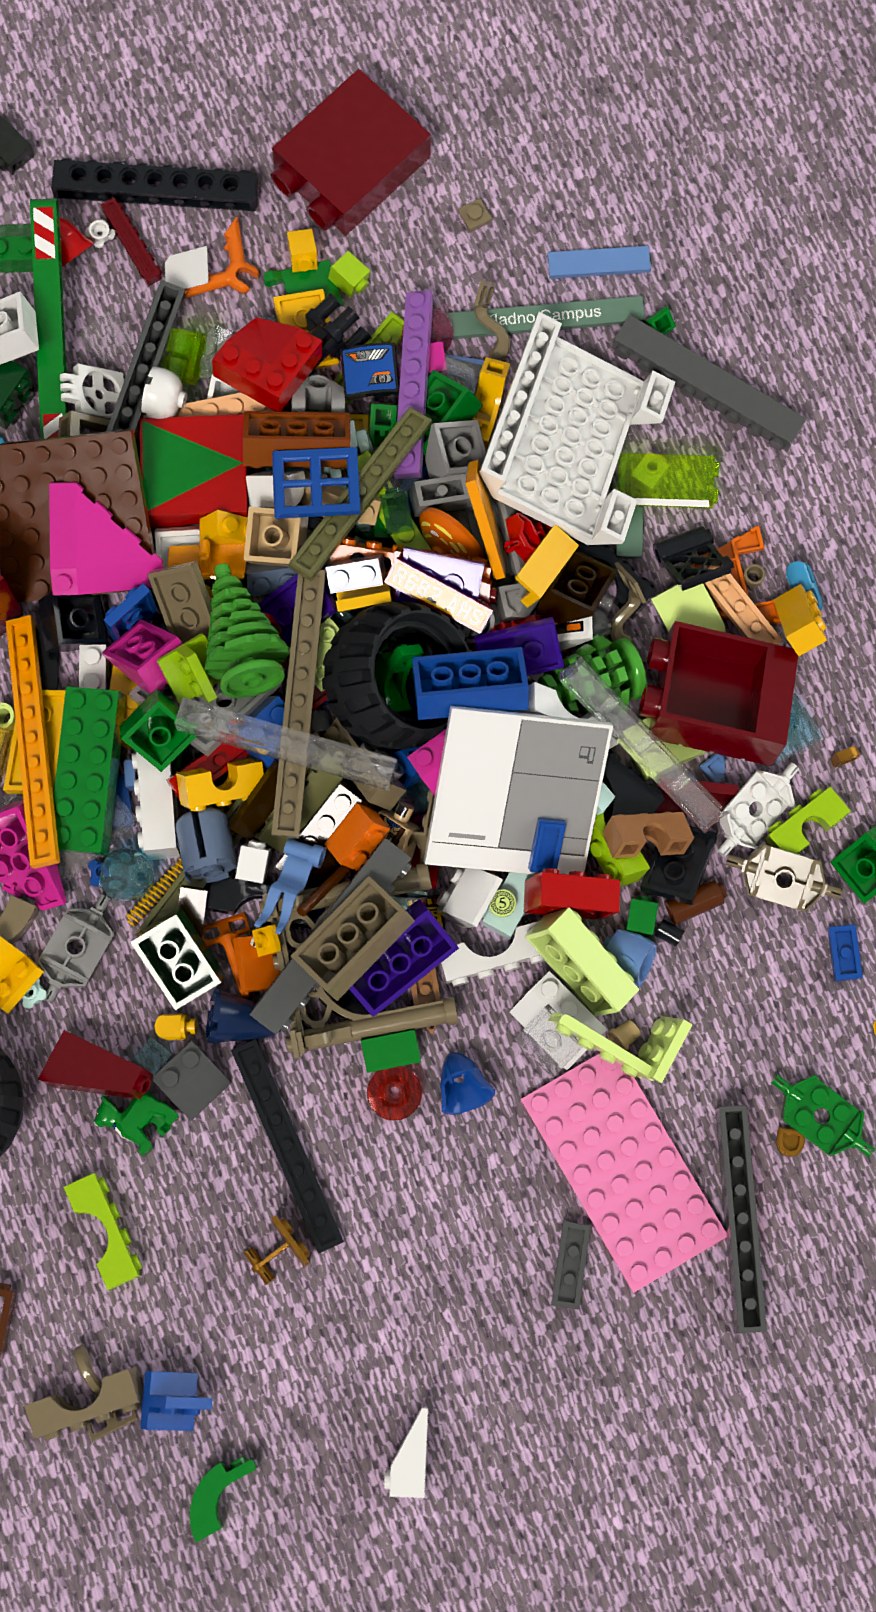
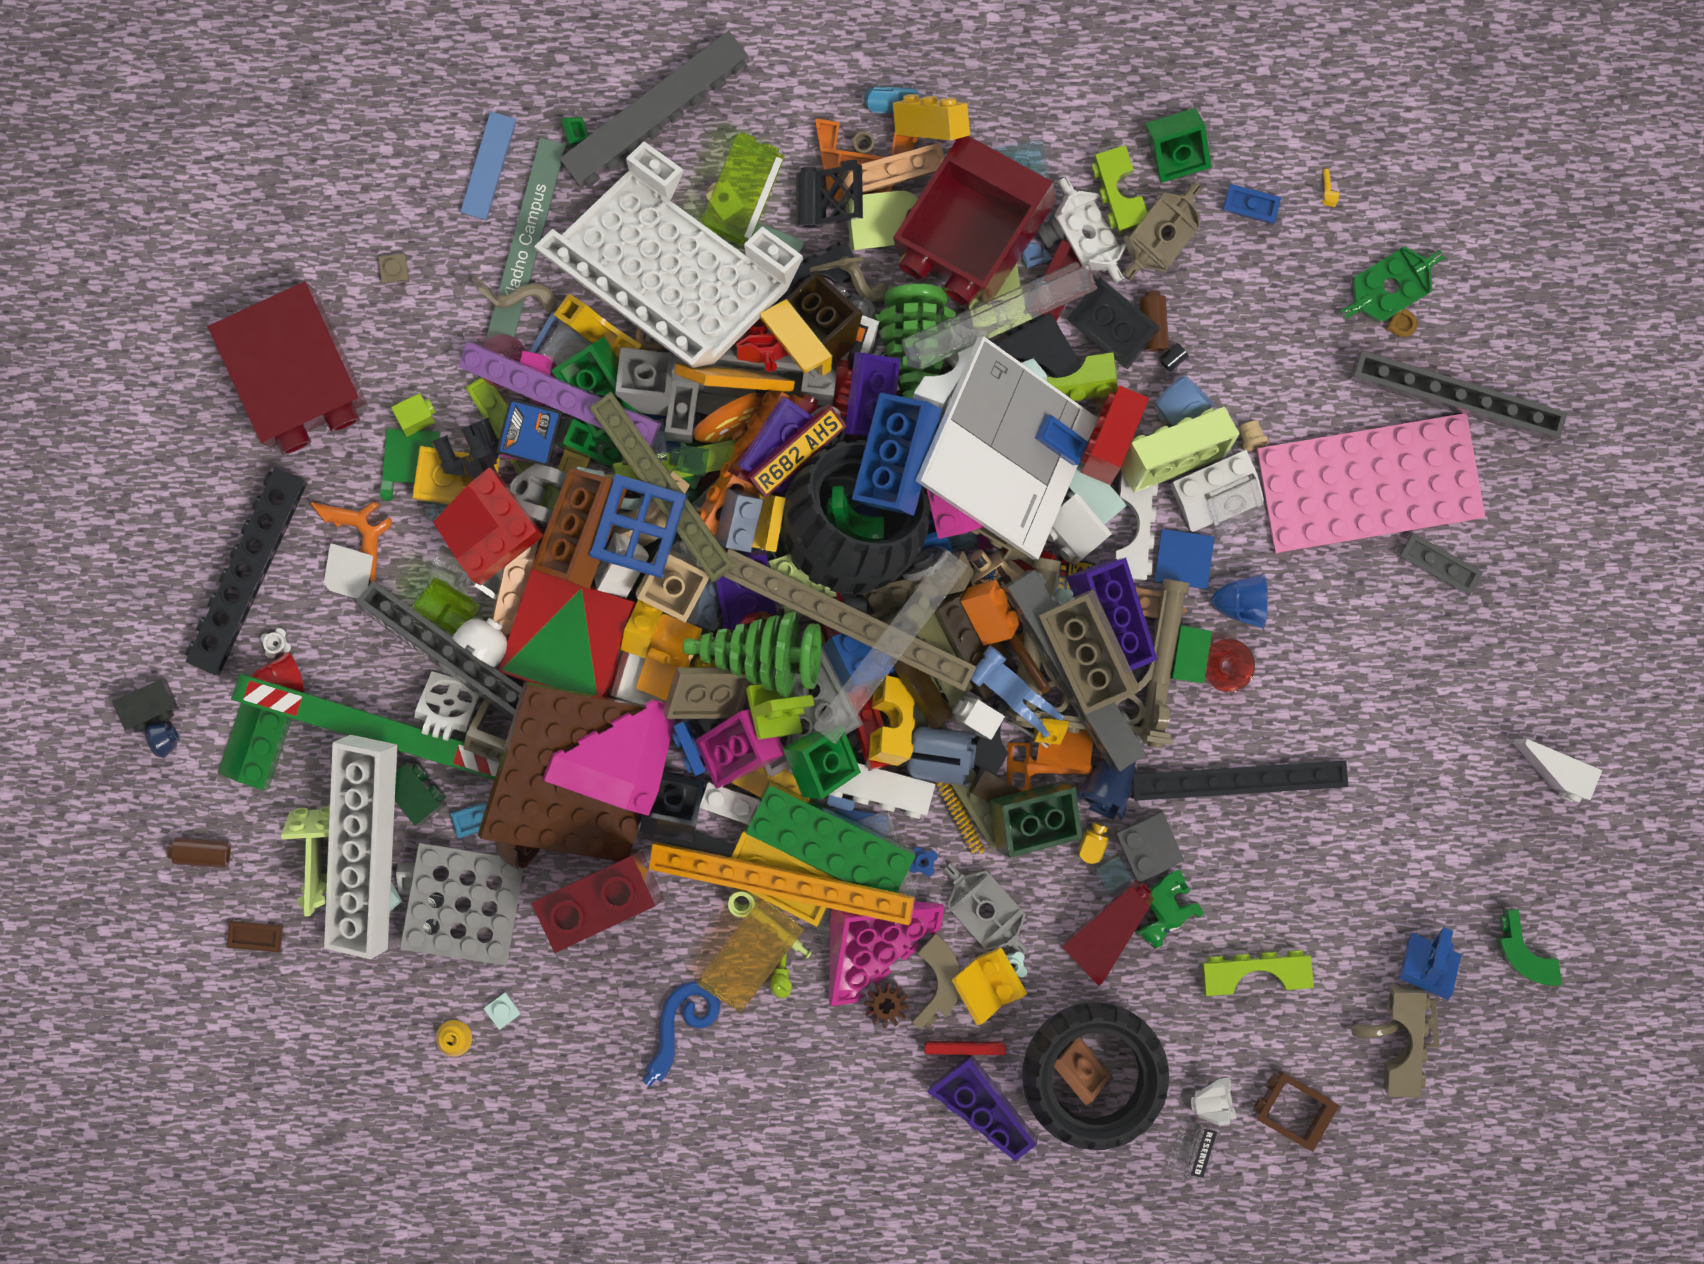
camera: 65 degrees left, 10 degrees up
(106, 337) = (387, 674): clear piece -> none
(126, 875) = (937, 838): clear light blue piece -> none
(129, 238) = (295, 616): dark red piece -> none
(298, 1249) = (1337, 843): pearl gold plate -> none
(302, 250) = (371, 451): yellow brick -> none
(364, 441) = (598, 463): light aqua tile -> none
(482, 1014) = (1184, 558): none -> blue tile
(503, 903) = (1096, 500): yellowish green tile -> none
(628, 833) = (1083, 322): medium nougat arch -> none
(641, 916) = (1150, 377): green brick -> none
(654, 1056) = (1285, 415): yellowish green bracket -> none
(740, 773) = (1051, 232): none -> dark grey wheel
(845, 756) = (1069, 128): pearl gold tile -> none

